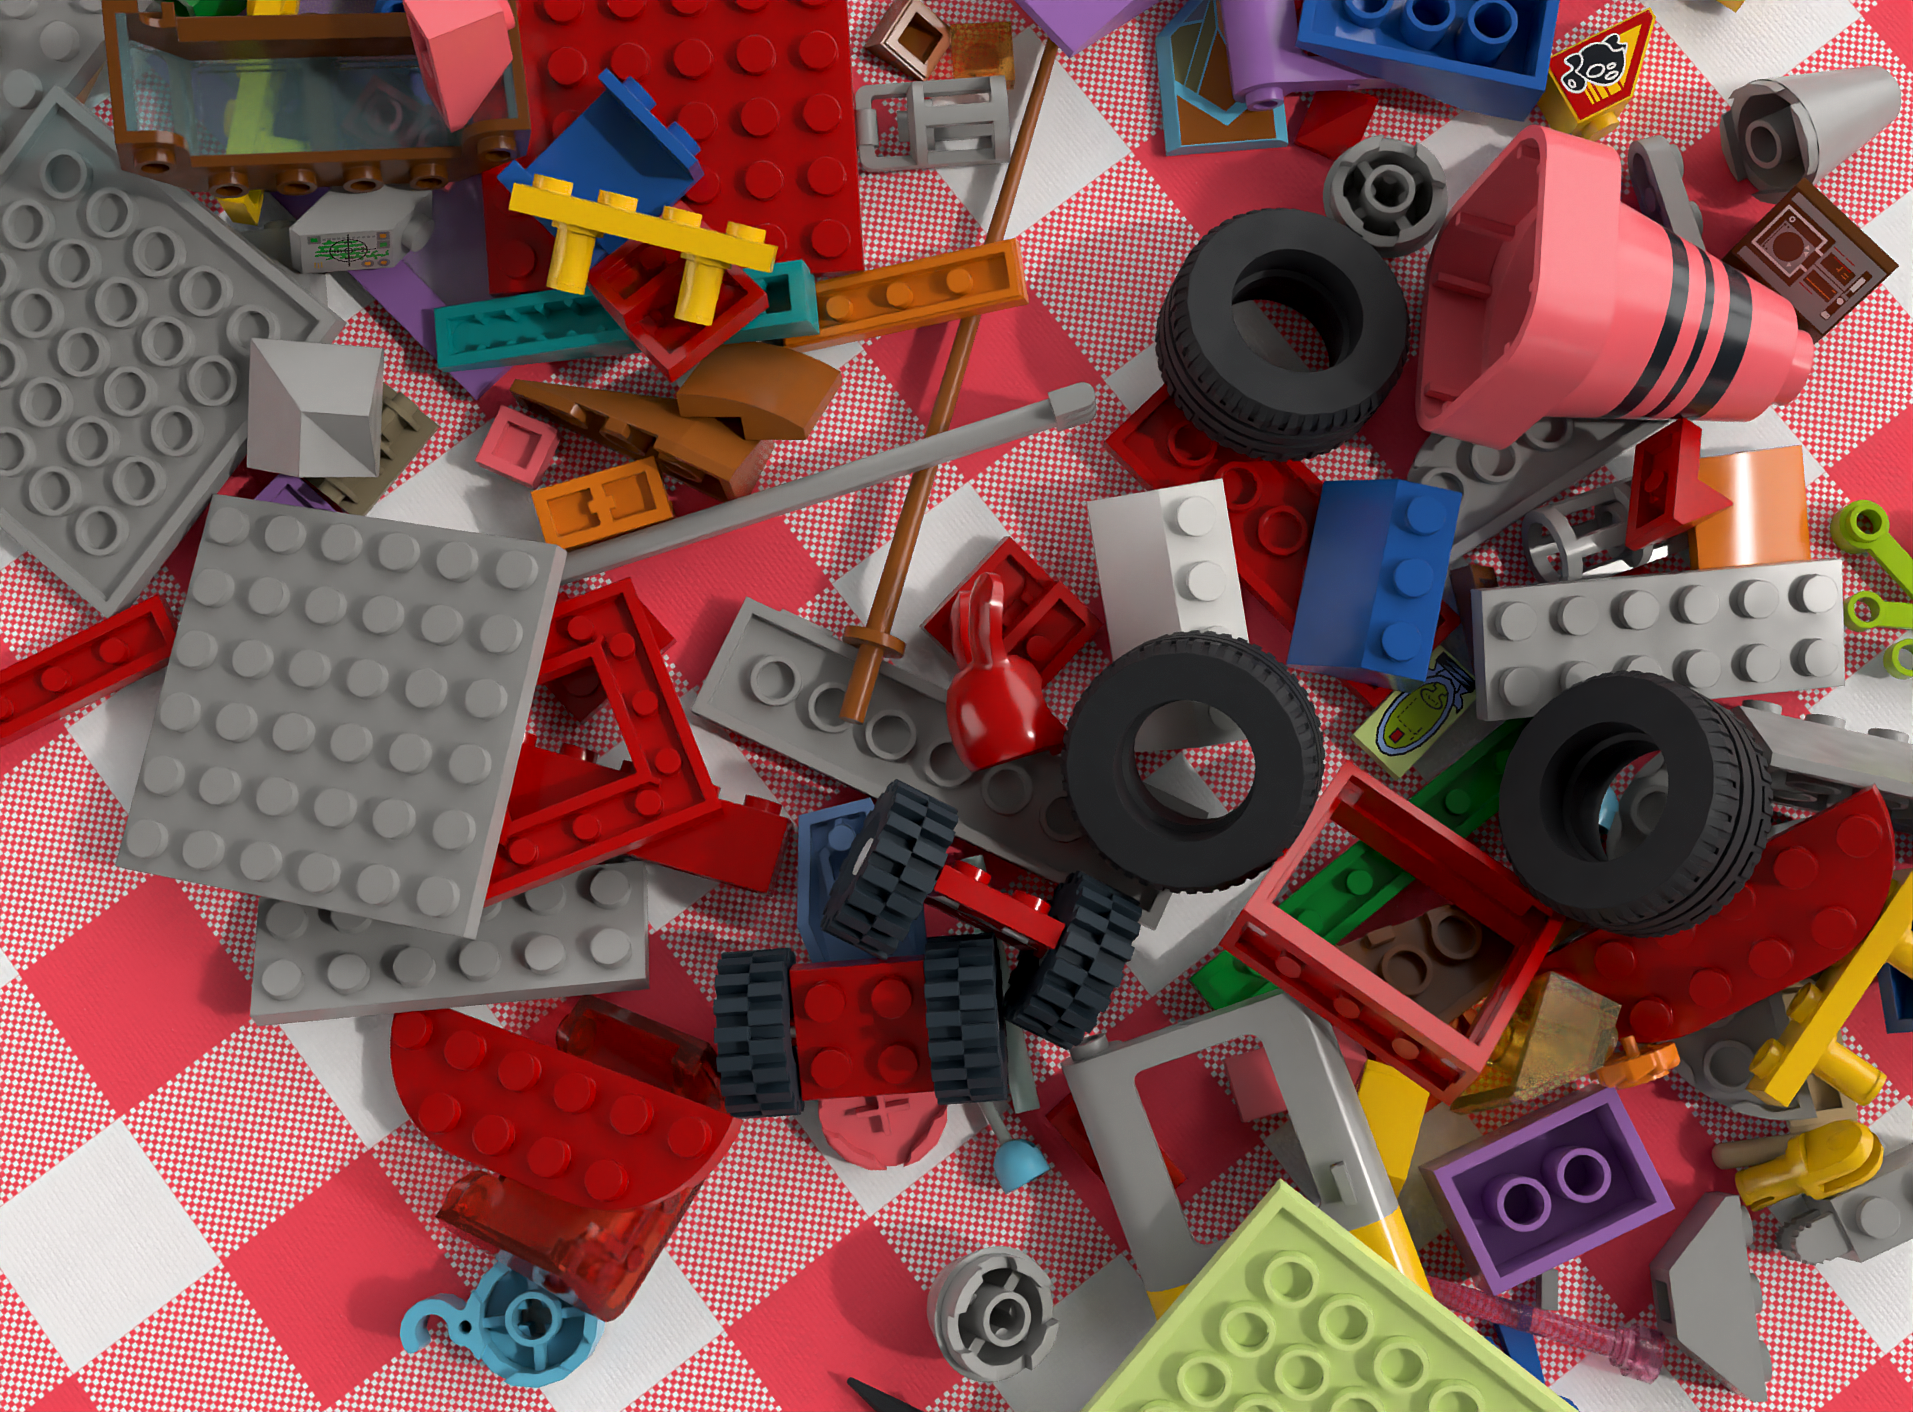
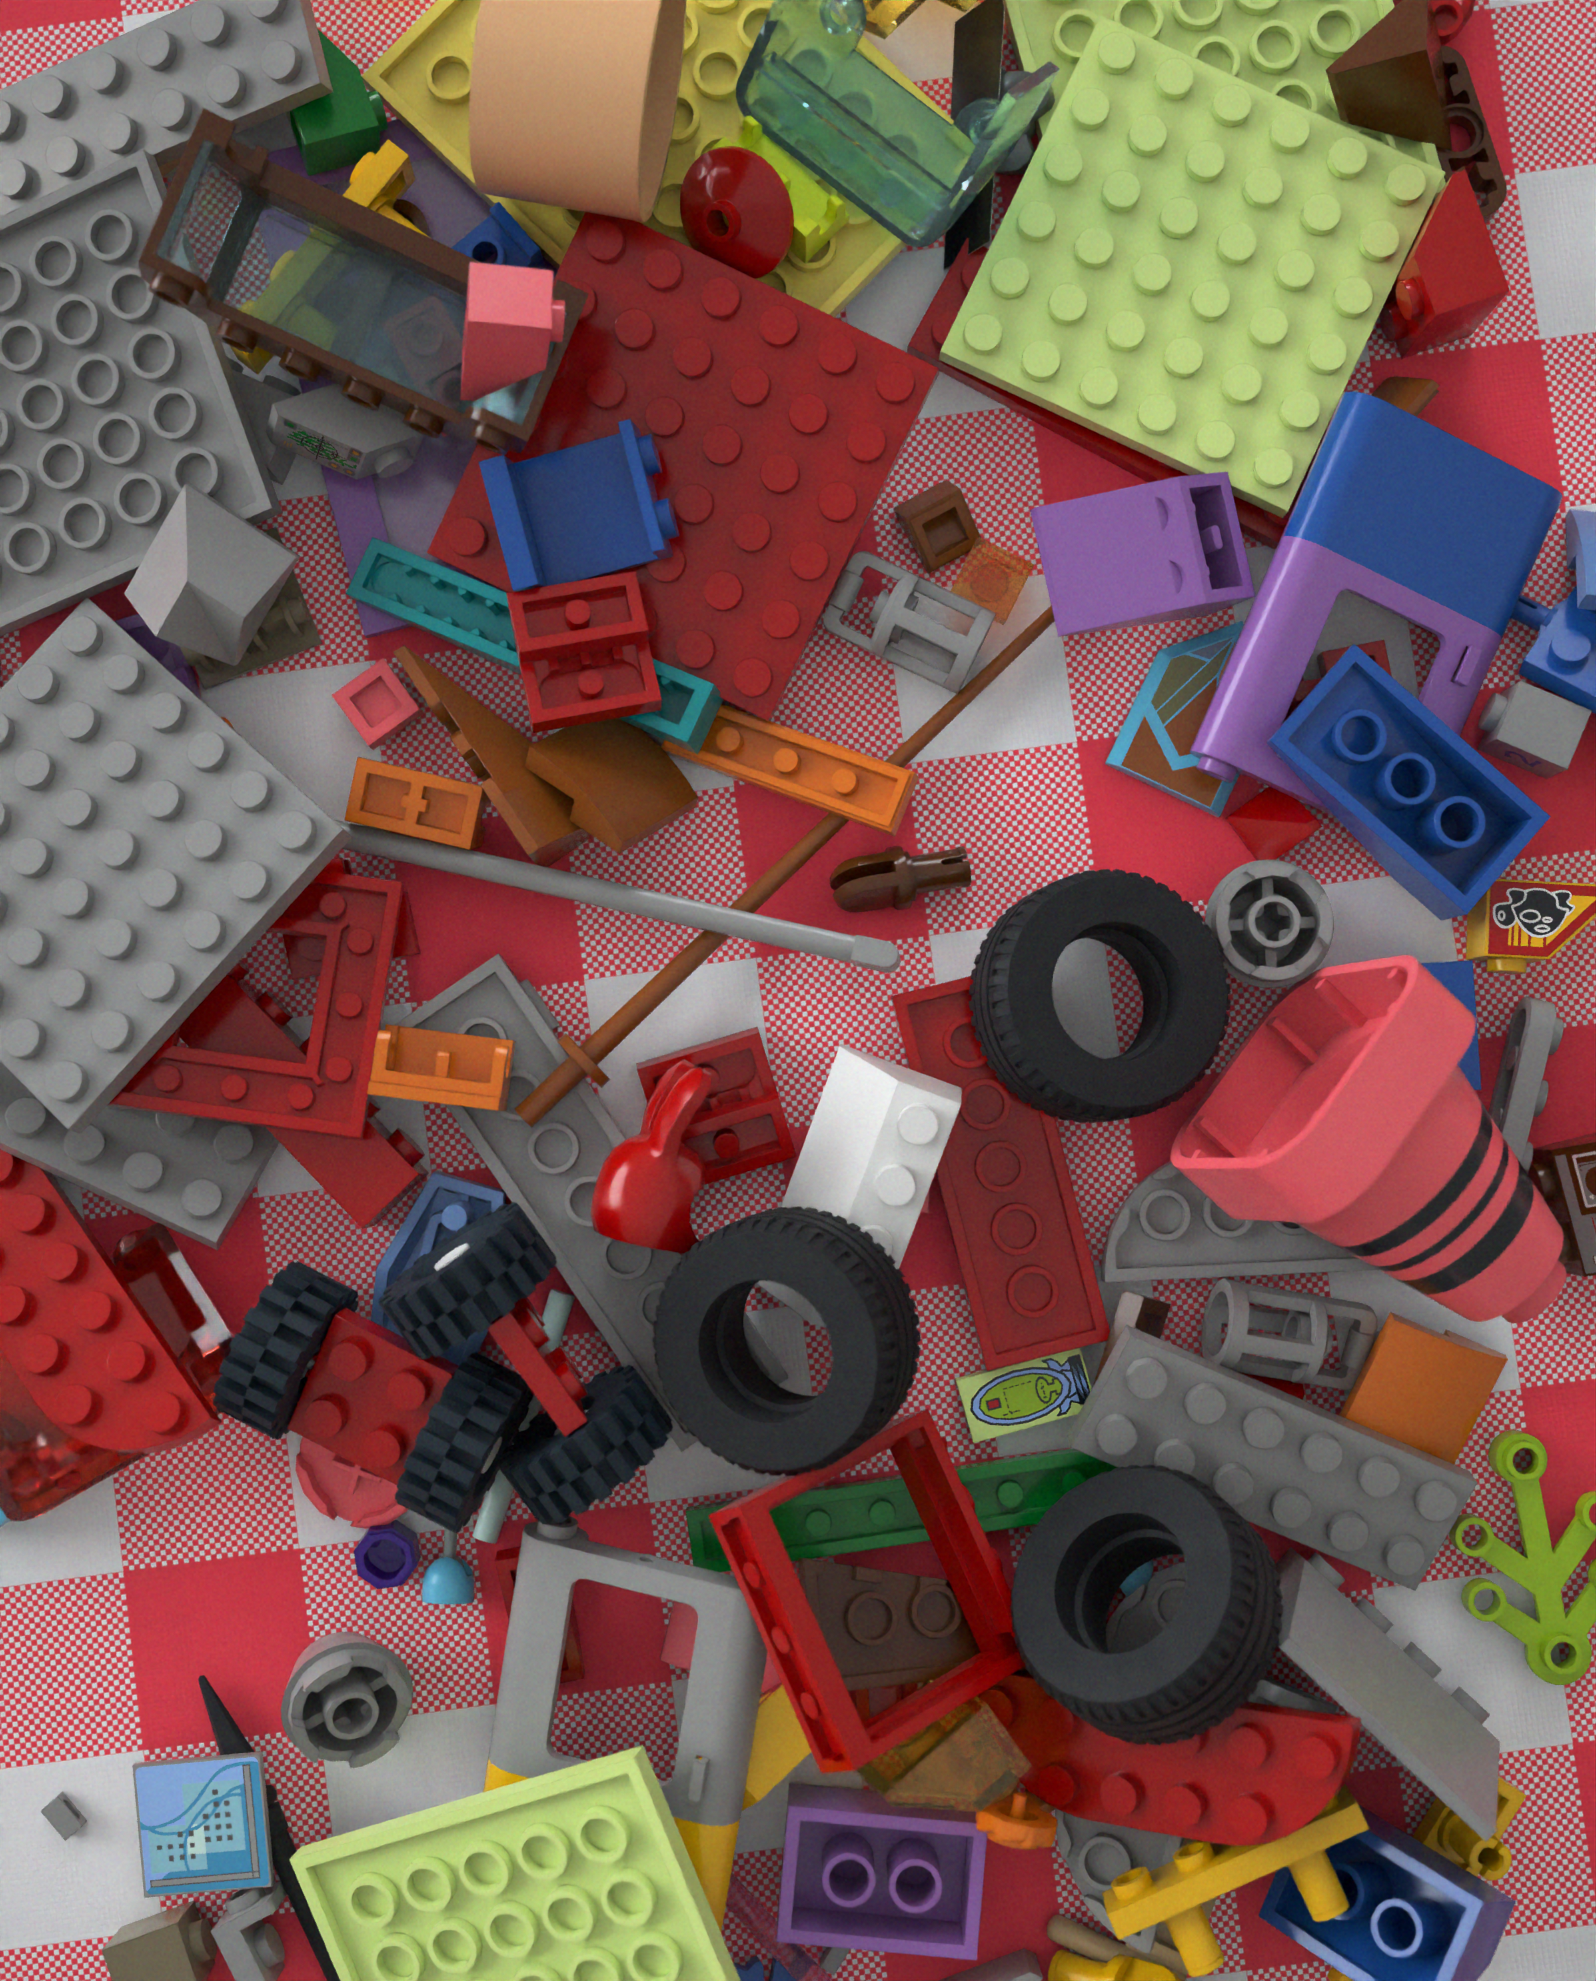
camera: 30 degrees right, 5 degrees up
(583, 220) = (560, 564): yellow plate -> none
(757, 717) = (442, 1067): none -> orange hinge
(951, 1172) = (387, 1555): none -> dark purple tile
(1049, 342) = (896, 878): none -> reddish brown arm
(1374, 582) = (1049, 1264): blue slope -> none
(1666, 487) = (1352, 1334): red slope -> none

